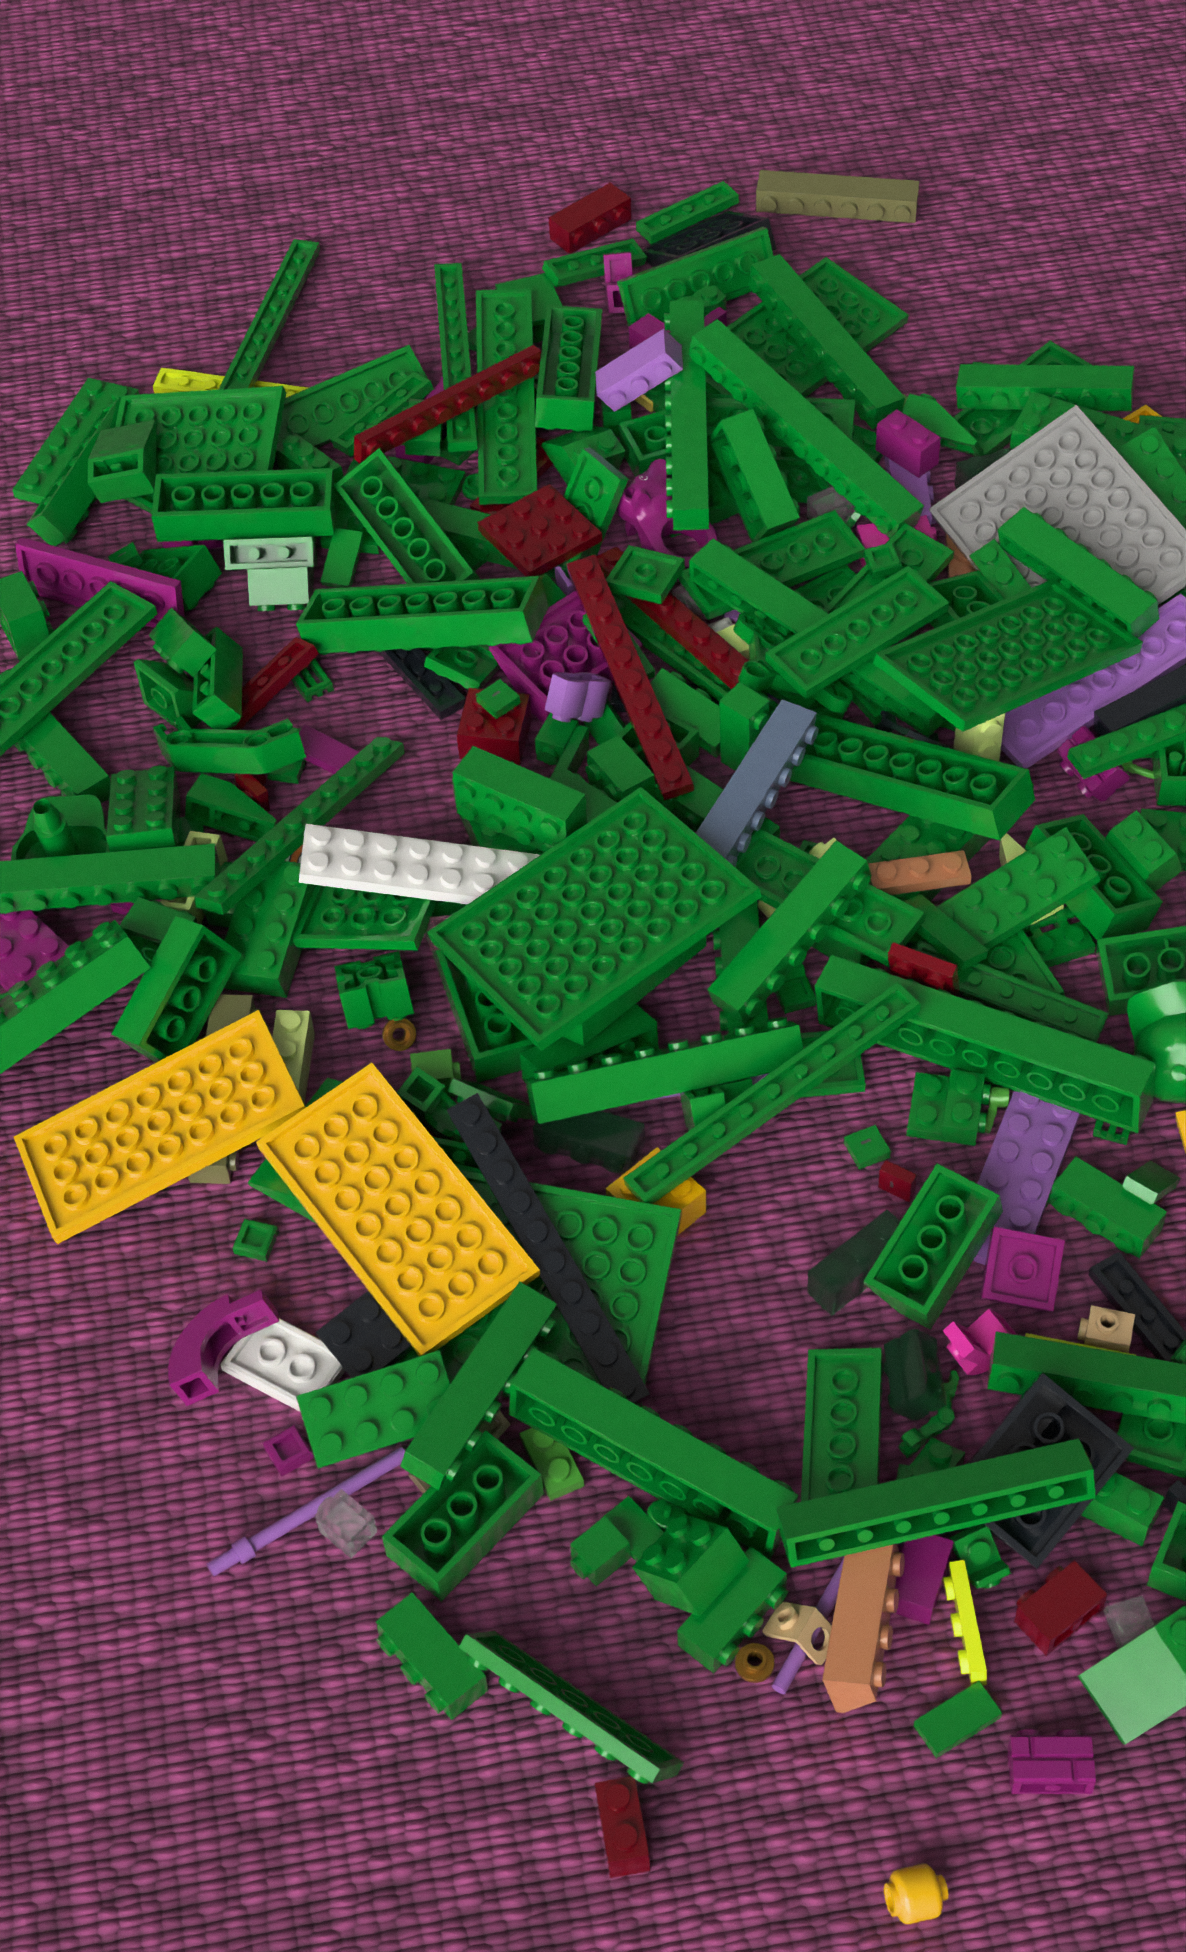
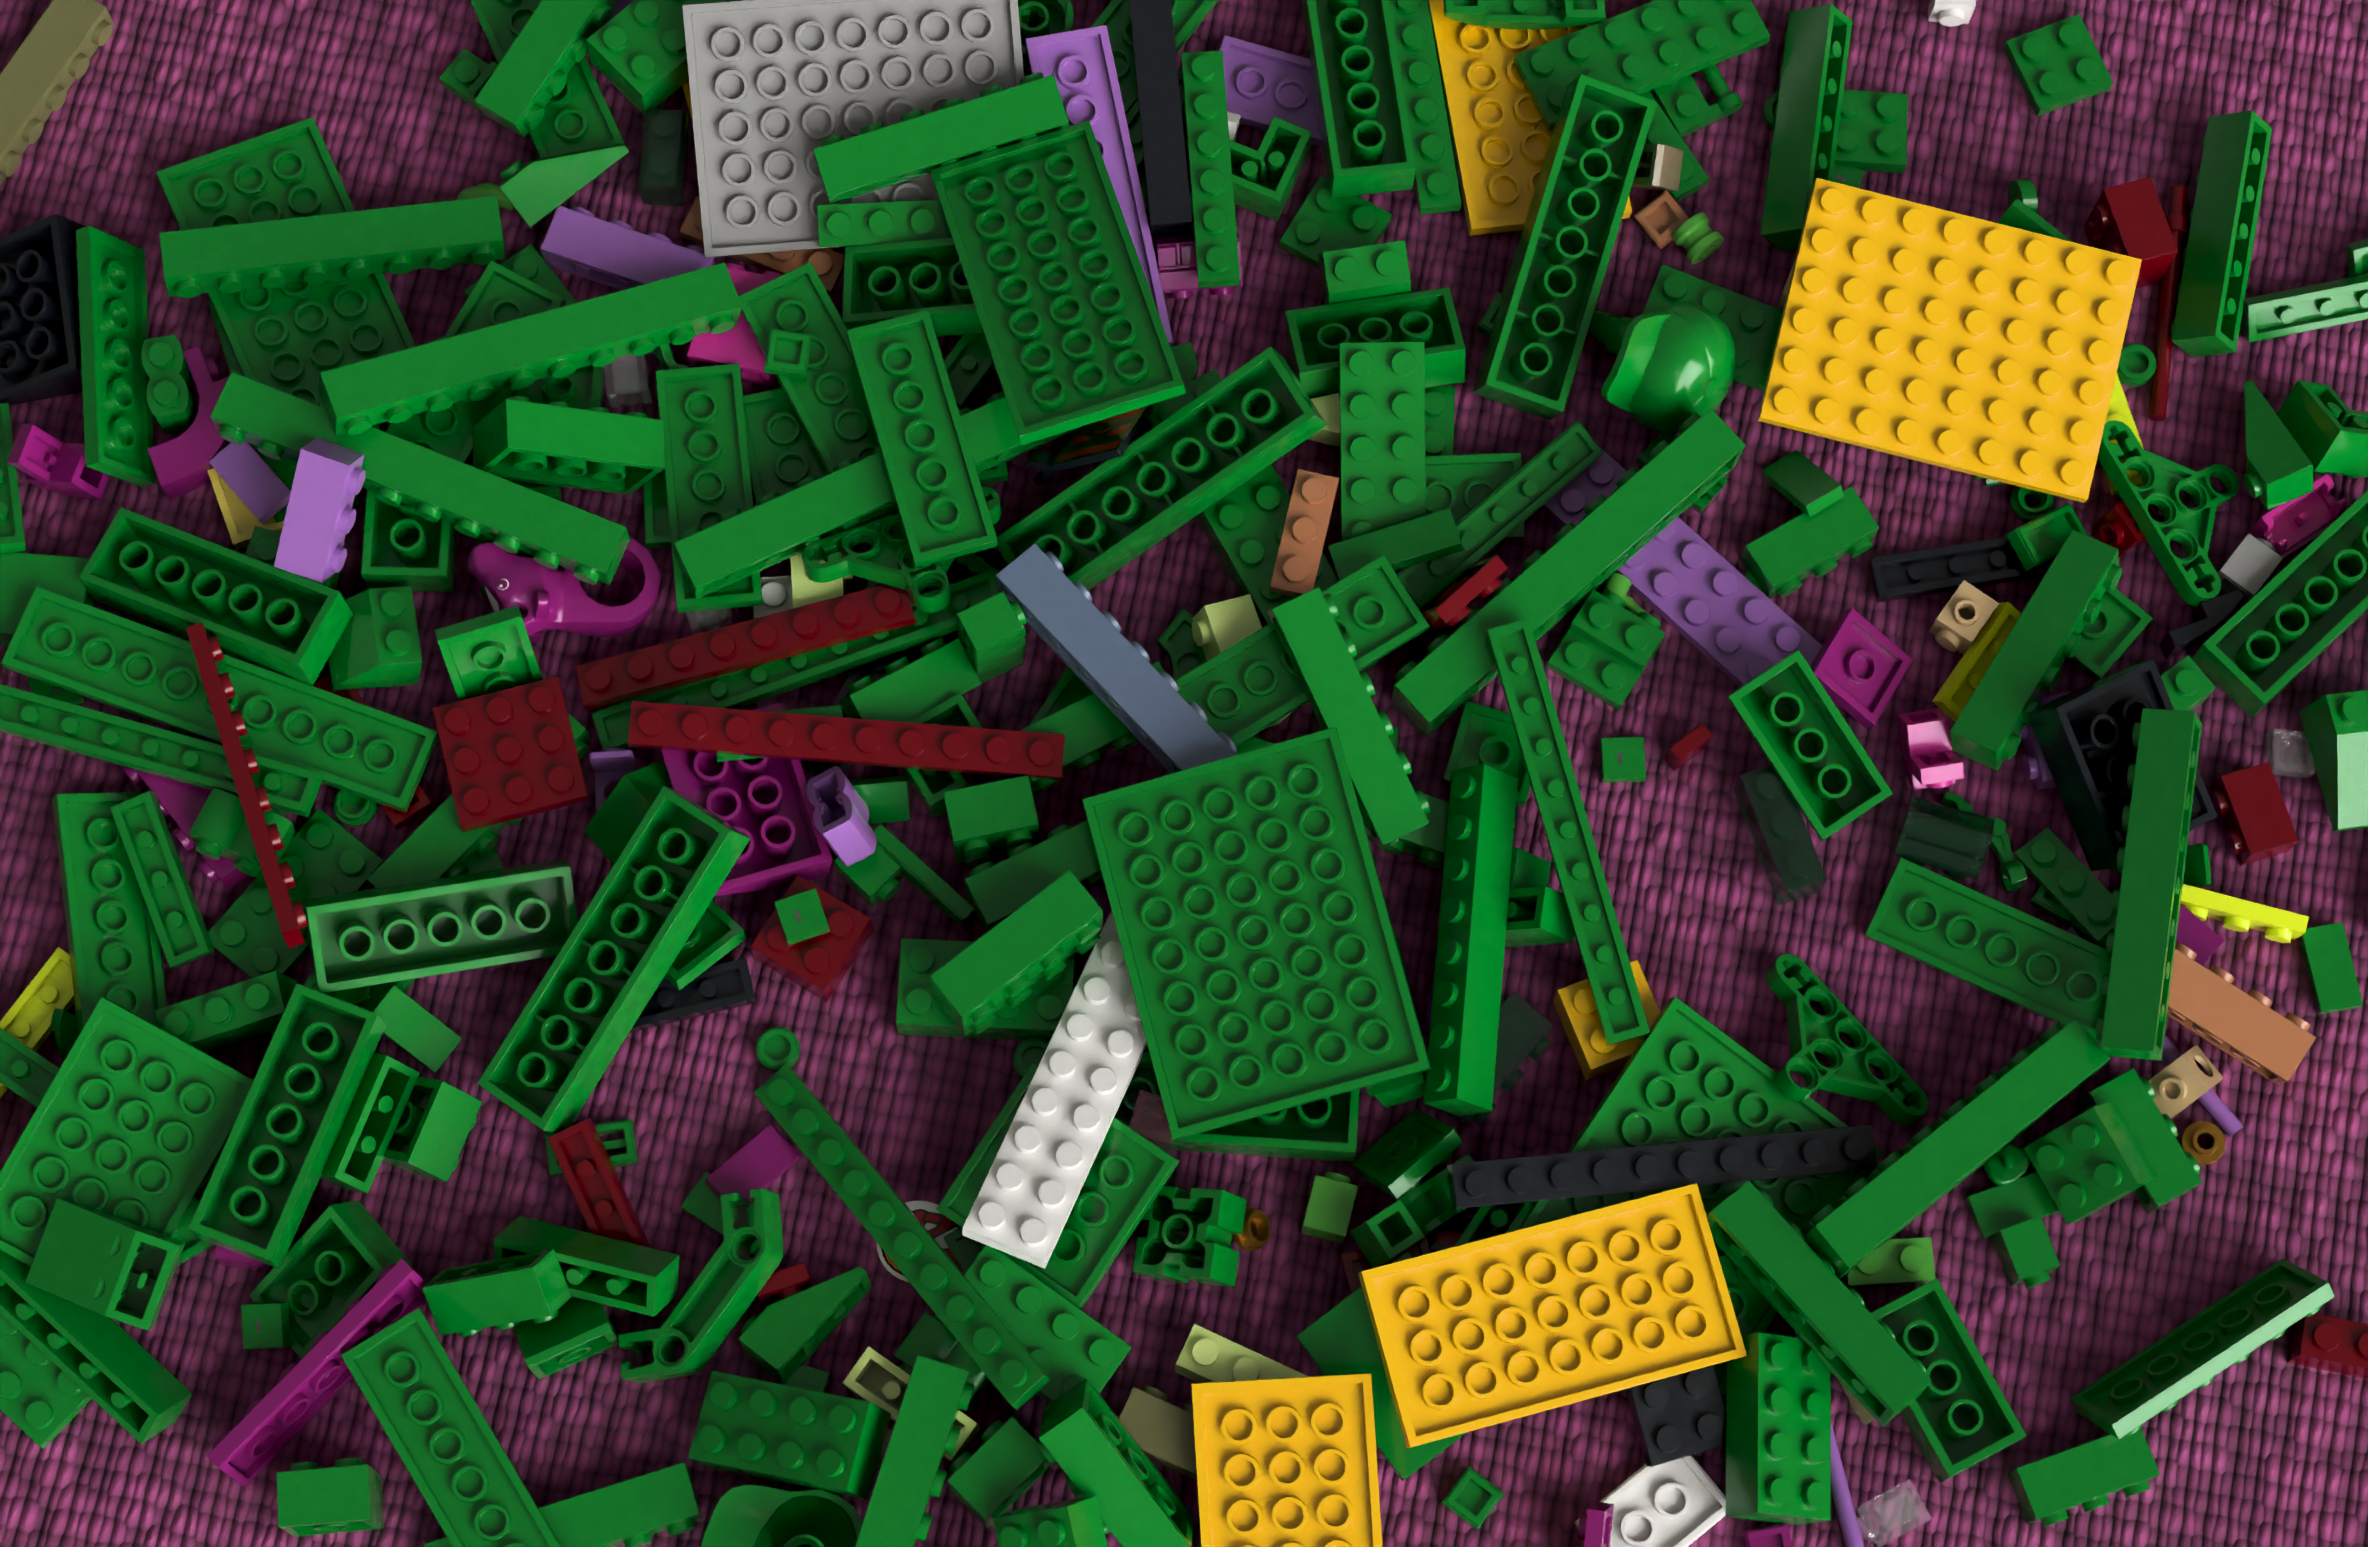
camera: 75 degrees left, 20 degrees up
(415, 741) = (777, 1047): none -> green tile
(645, 574) = (673, 651): green plate -> none
(694, 1369) = (1849, 1065): none -> green beam
(907, 443) = (591, 230): magenta brick -> none

